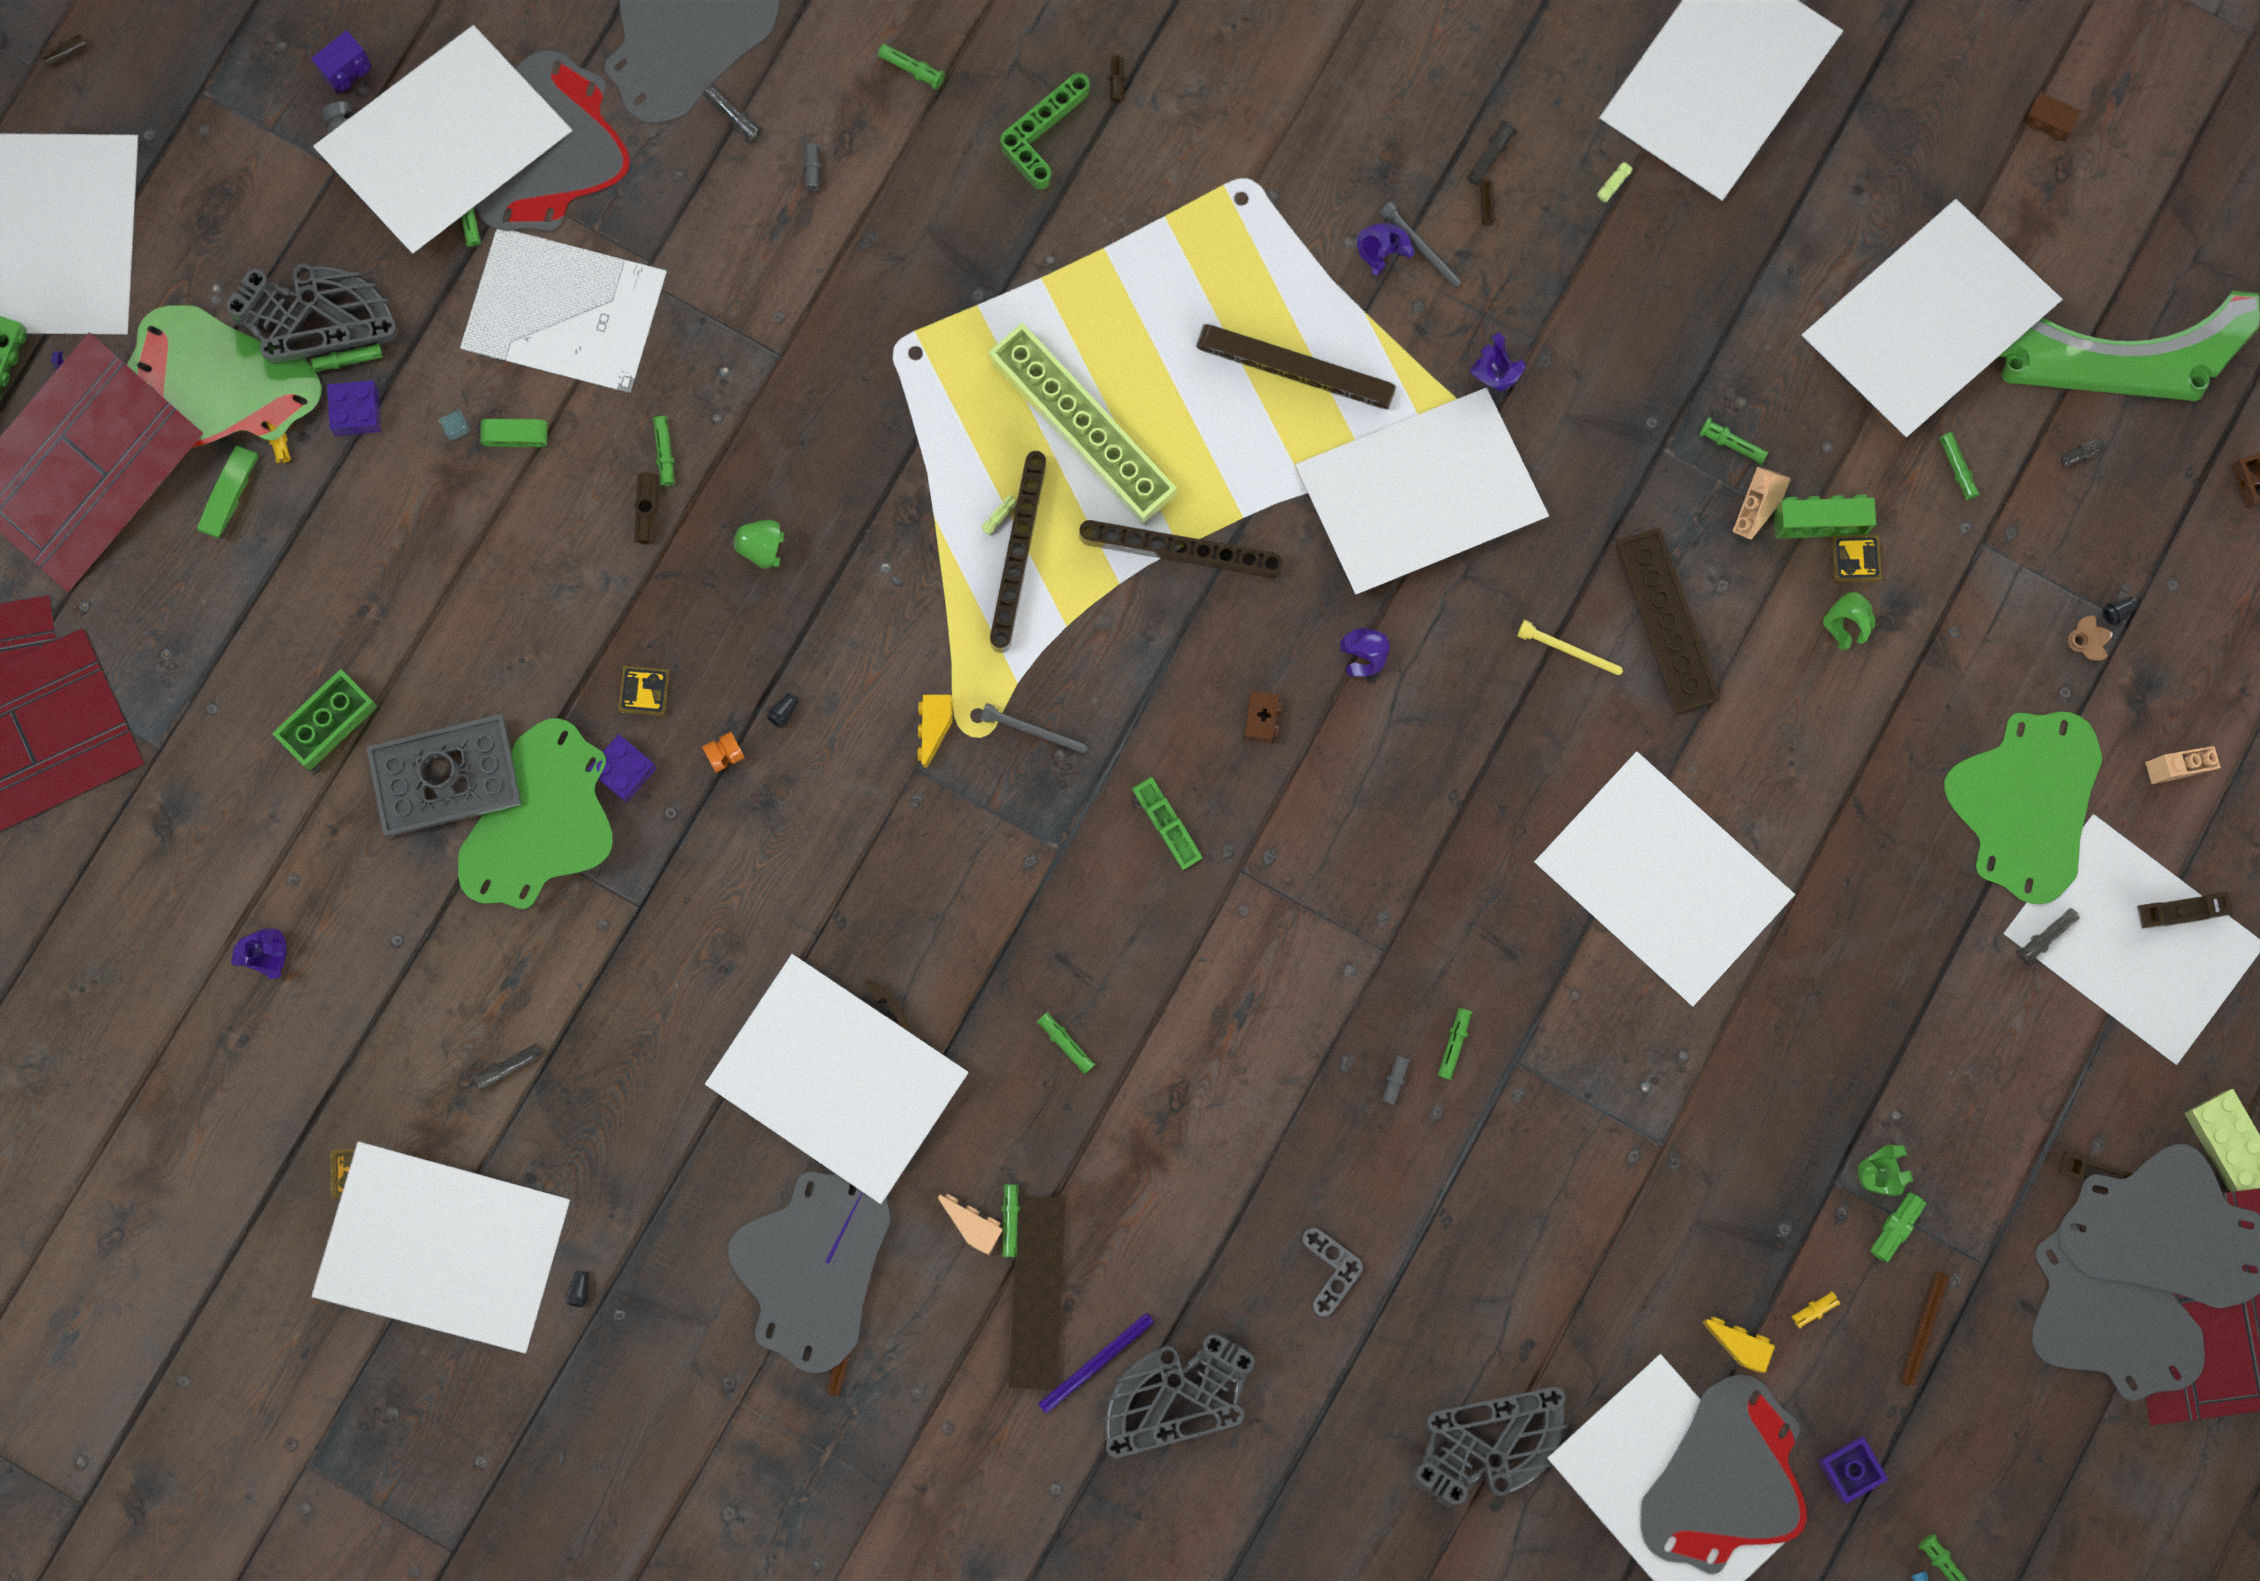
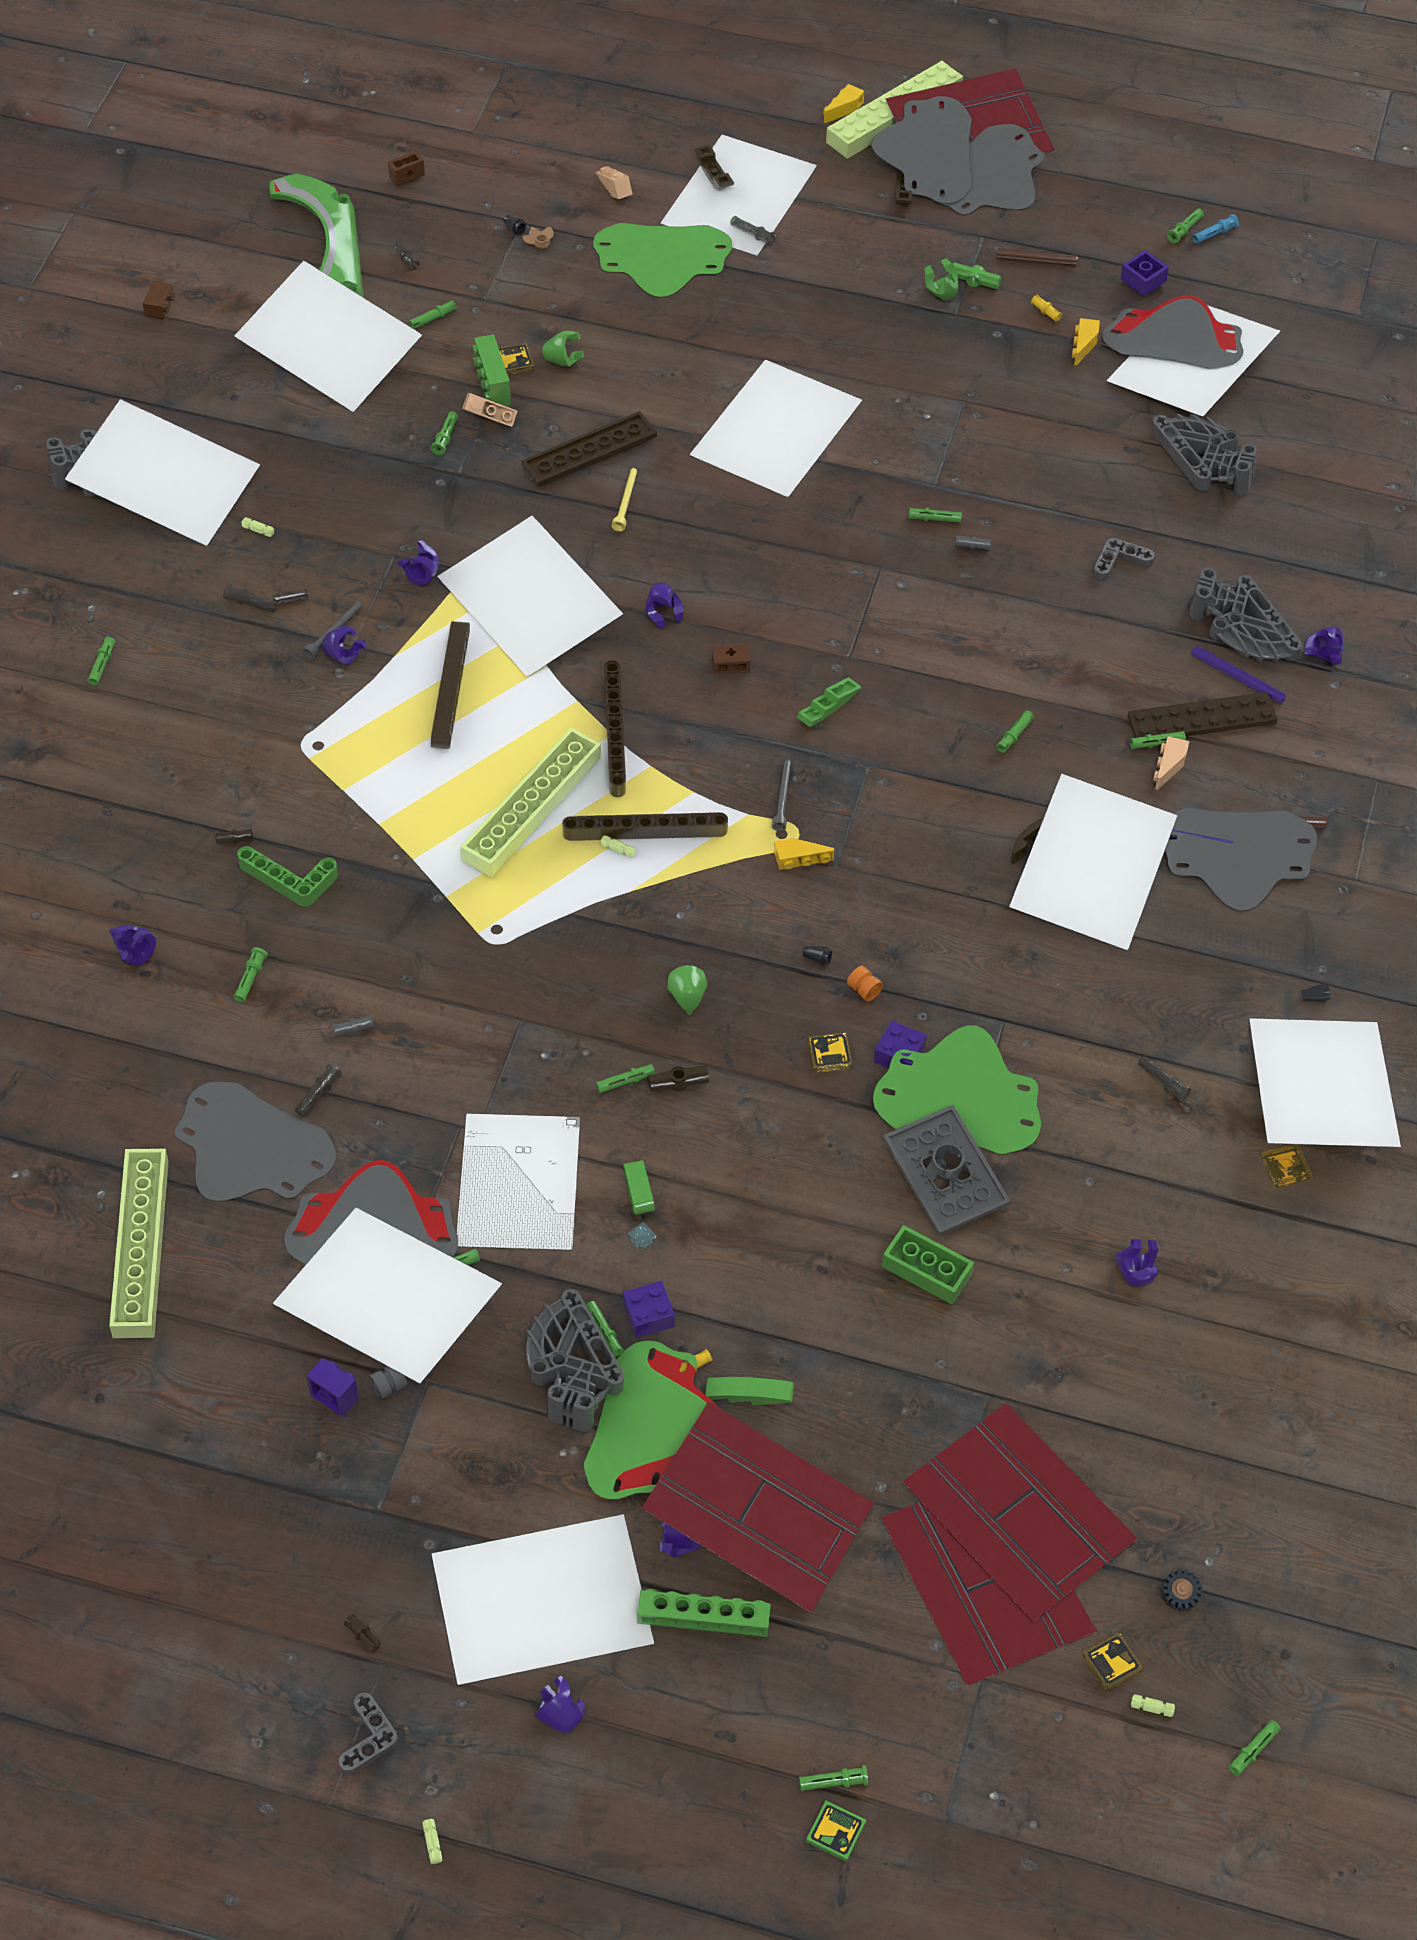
camera: 100 degrees left, 25 degrees down
(1113, 1494) = (1326, 644): none -> dark purple piece

